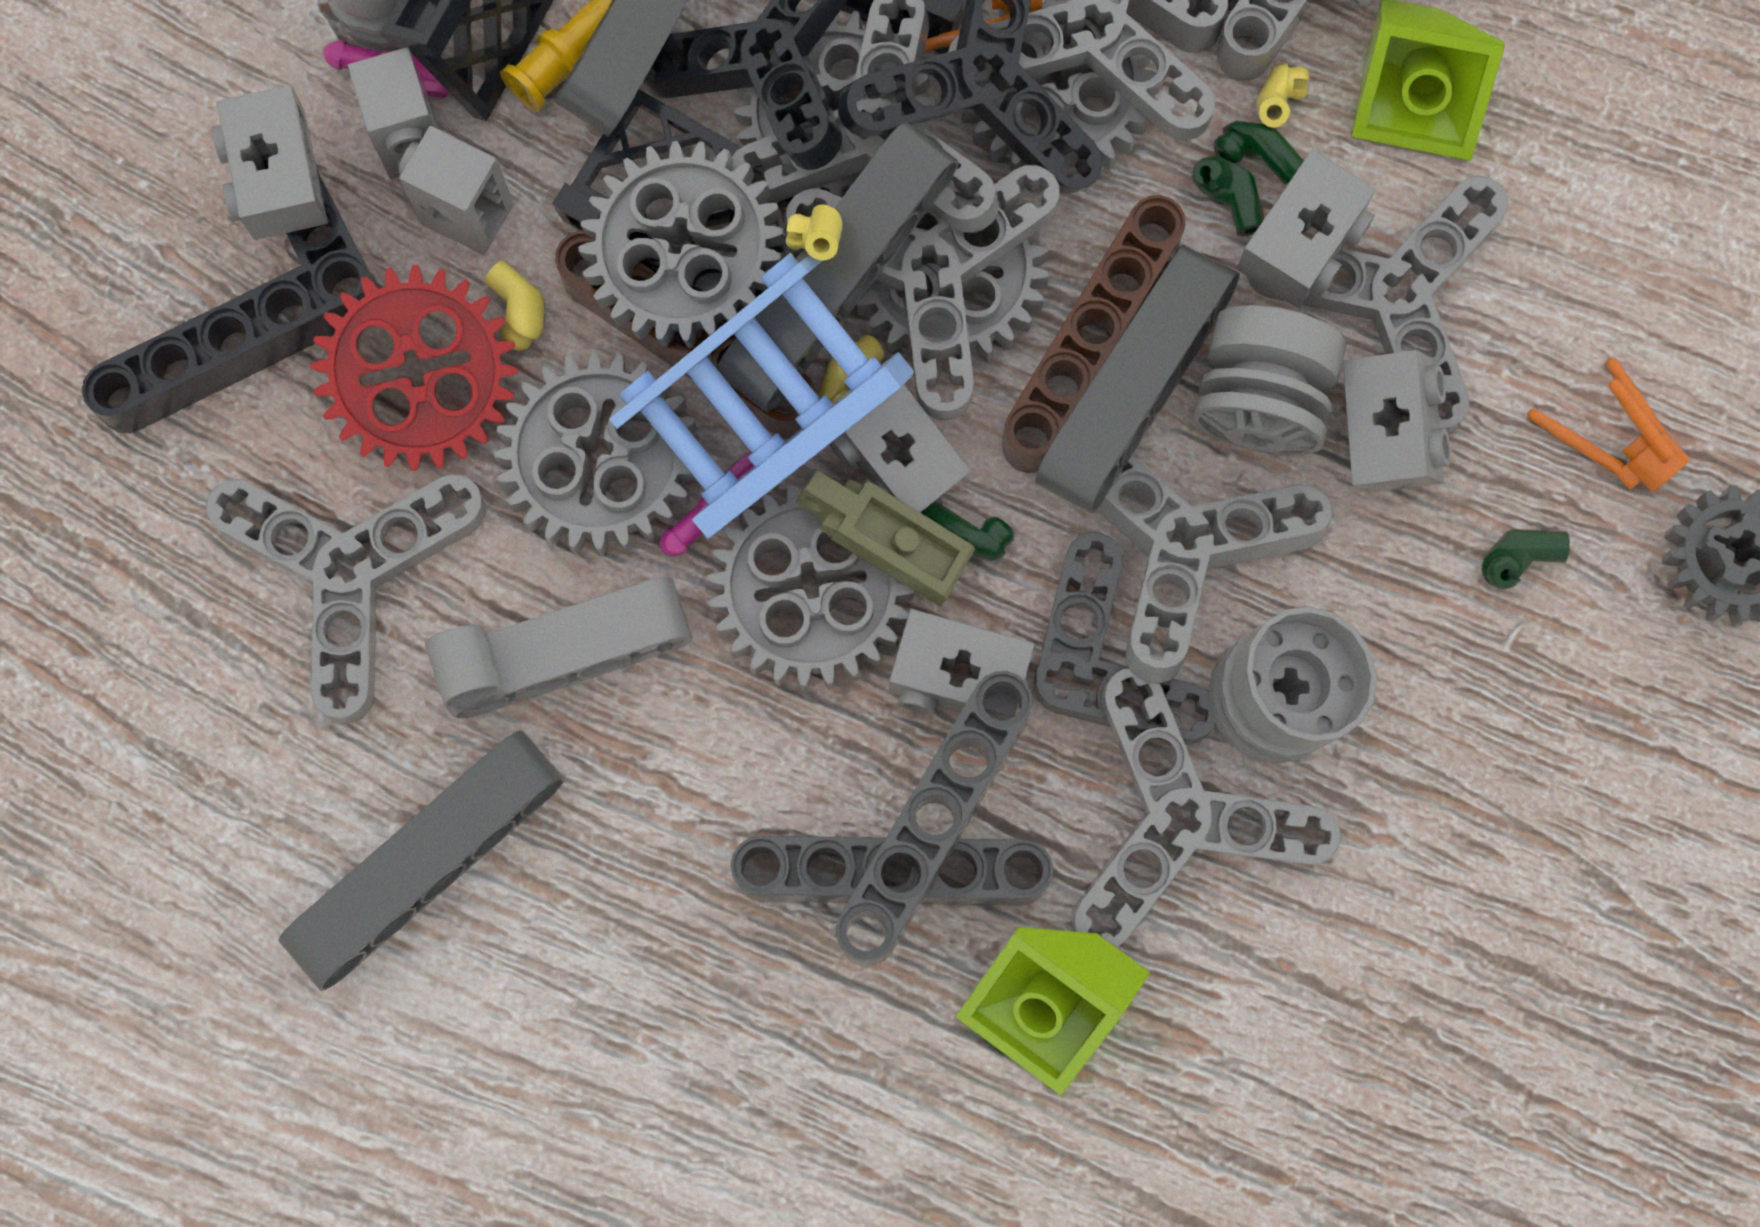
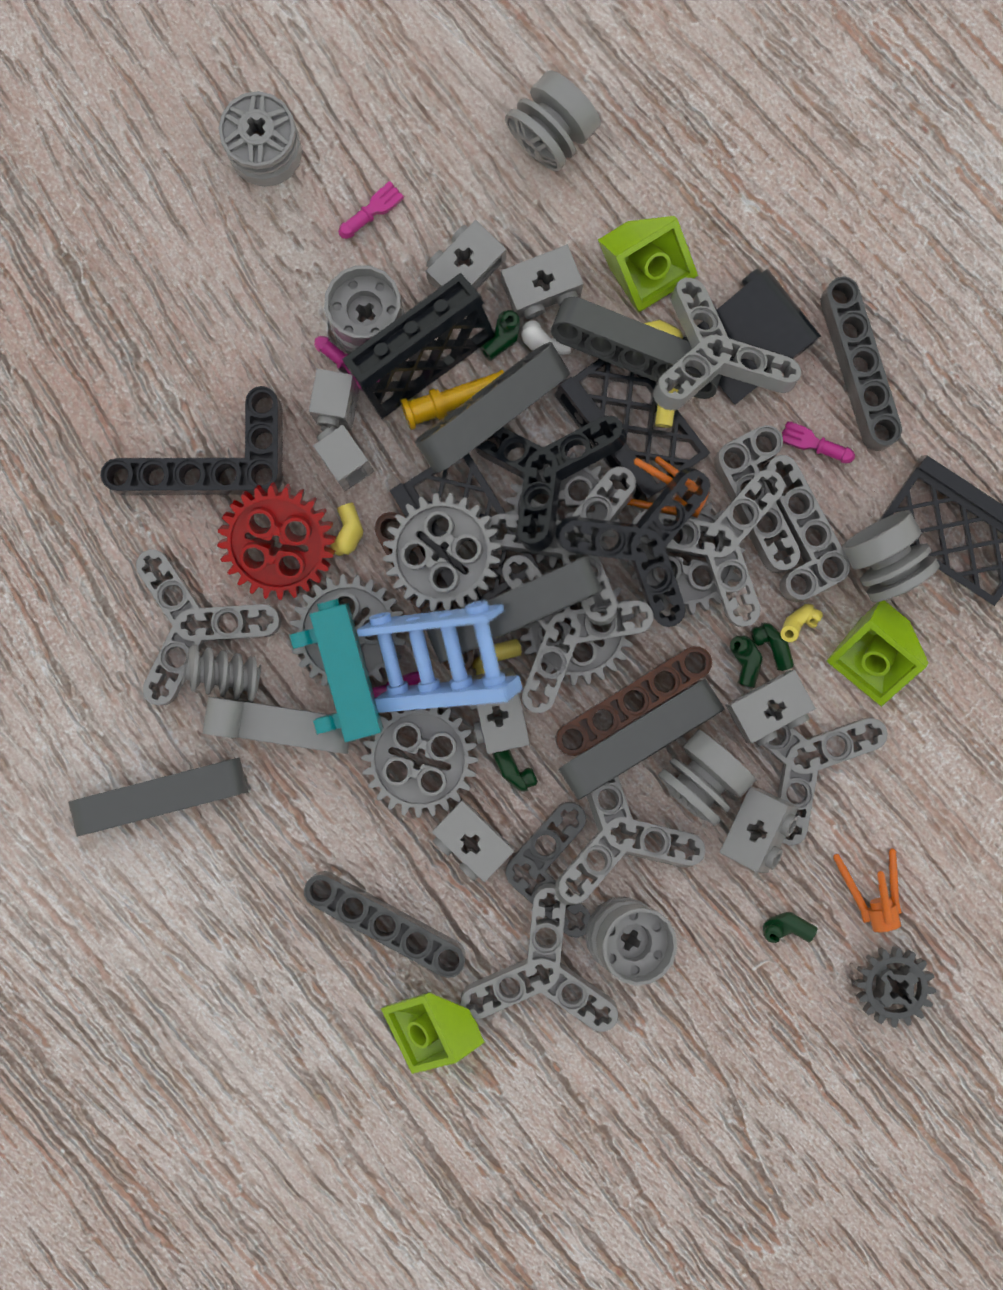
camera: 25 degrees right, 10 degrees up
(272, 128) = (259, 416): light grey brick -> none
(426, 605) = (221, 672): none -> light grey piece
(623, 495) = (345, 672): none -> teal brick
(817, 233) = (509, 597): light yellow arm -> none
(888, 534) = (470, 758): olive hinge -> none
(942, 786) = (403, 932): dark grey beam -> none

